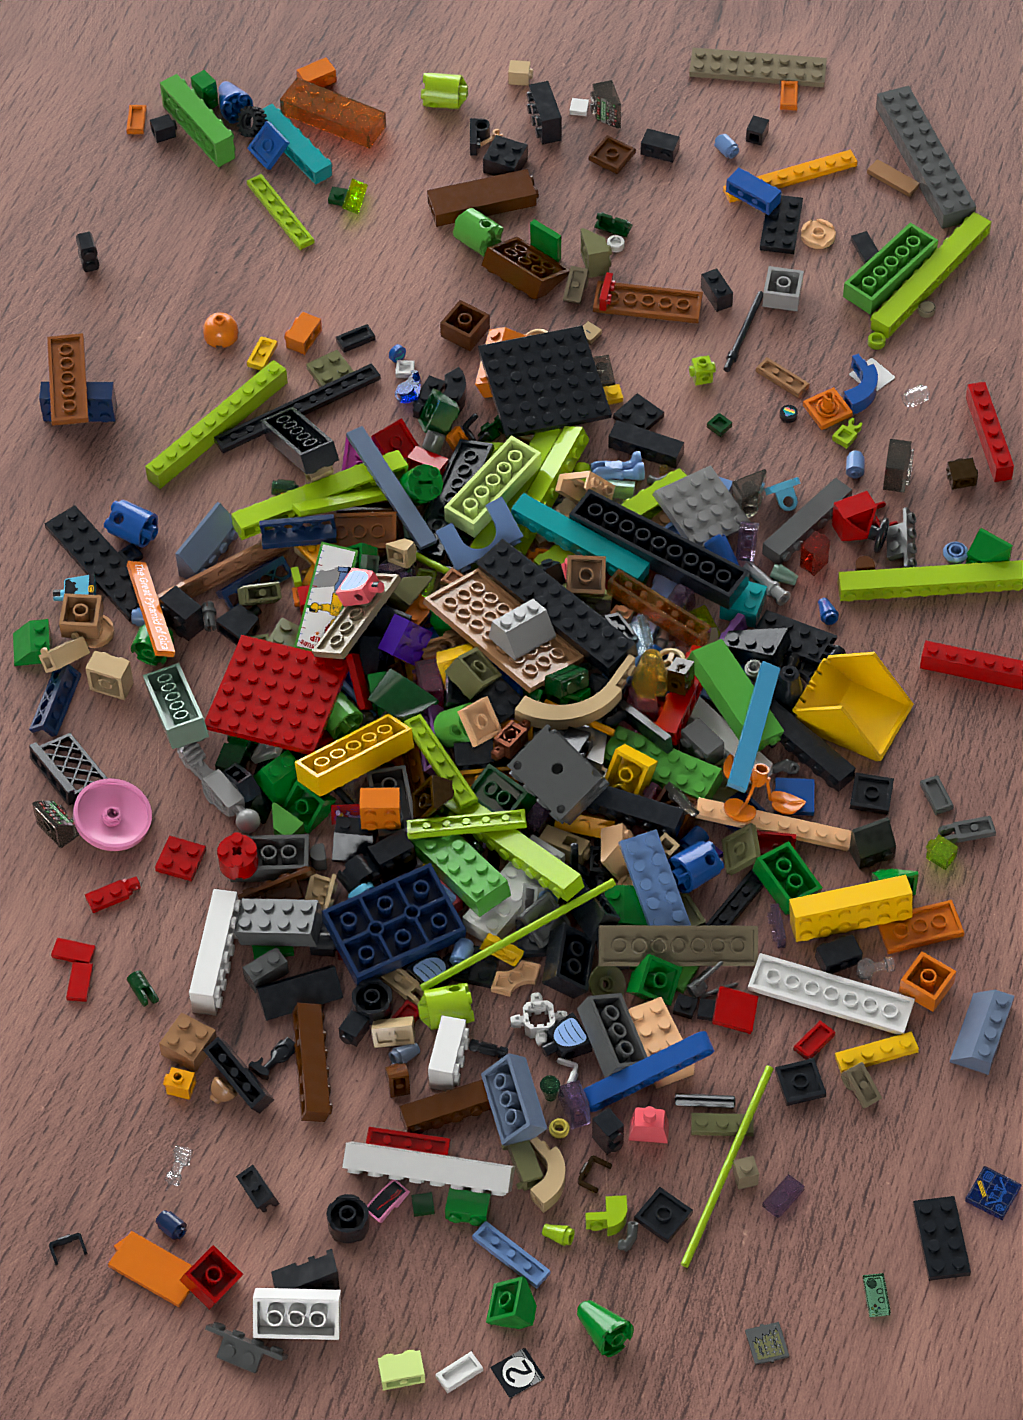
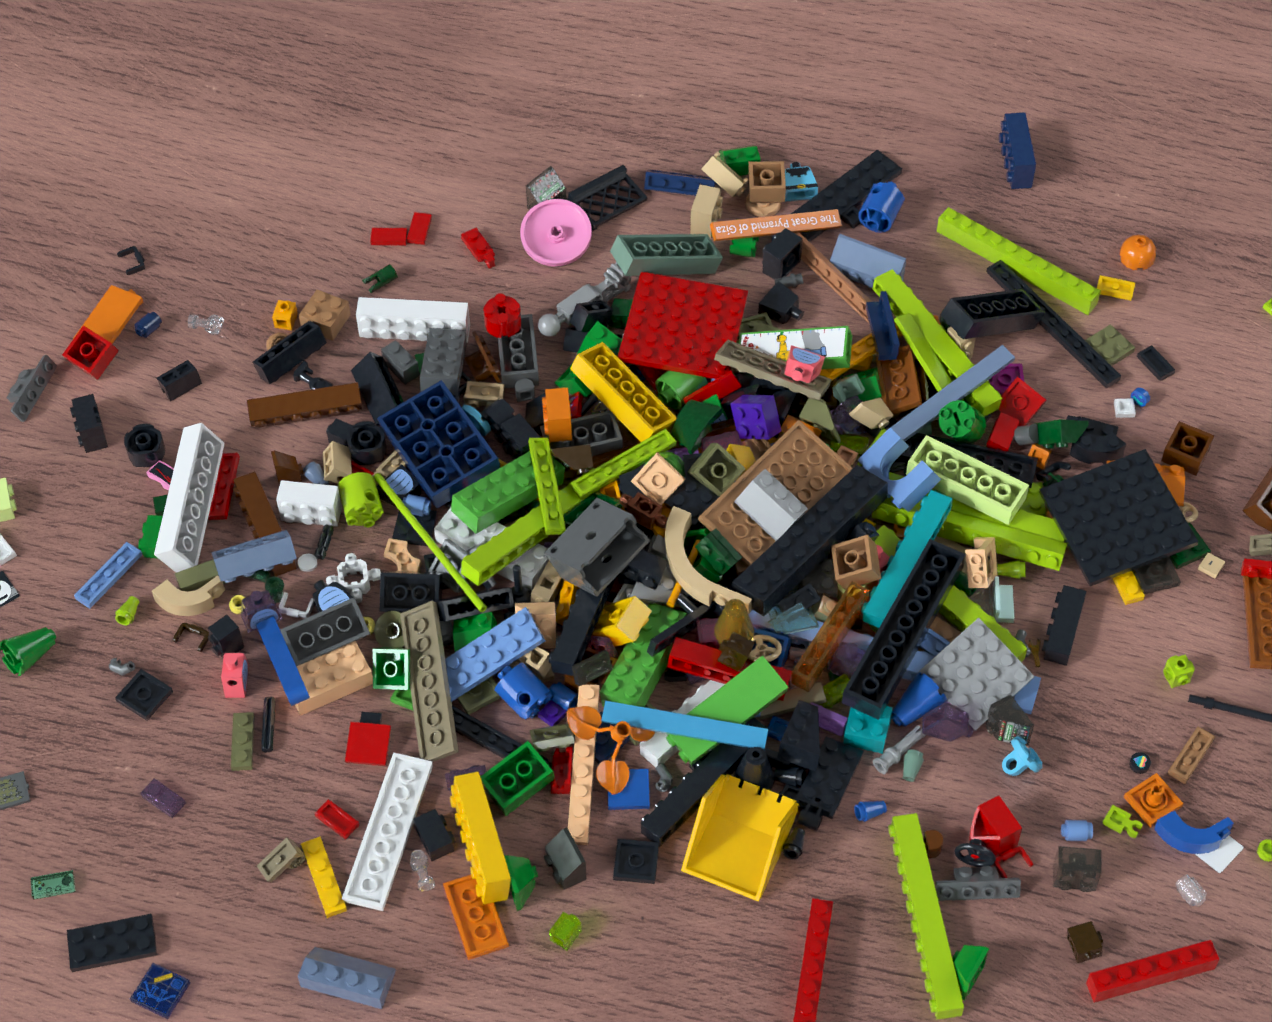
camera: 85 degrees right, 0 degrees up
(67, 379) = (1027, 127): dark orange plate -> none
(87, 251) = (1204, 135): black brick -> none
(180, 858) = (522, 289): red plate -> none
(253, 575) = (834, 304): dark blue fence -> none
(259, 594) = (813, 310): olive brick -> none
(285, 823) = (556, 361): bright green slope -> none
(296, 1313) = (50, 414): white brick -> none
(303, 333) = (1148, 317): orange brick -> none
(410, 389) = (1096, 412): clear blue piece -> none
(510, 954) = (421, 547): yellow plate -> none
(512, 1304) = (52, 577): green slope -> none
(614, 1217) = (141, 652): lime brick -> none
(620, 470) = (1023, 597): medium blue piece -> none
(639, 413) = (1107, 618): black plate -> none
(685, 1006) = (374, 702): black plate -> none
(698, 986) = (394, 711): dark grey plant -> none
(701, 742) = (672, 689): dark grey brick -> none
(719, 424) = (1108, 693): dark green plate -> none
(727, 1166) = (194, 744): lime piece -> none
(745, 1172) = (184, 760): dark tan brick -> none
(751, 669) = (774, 737): white cone -> none
(800, 1082) = (286, 806): black plate -> none
(804, 523) = (987, 783): dark grey brick -> none
(815, 553) = (939, 789): clear red brick -> none
(927, 981) = (400, 917): orange brick -> none
(936, 795) = (642, 927): dark grey tile -> none
(955, 553) = (966, 934): medium blue cone -> none
(969, 829) = (597, 960): dark grey hinge -> none

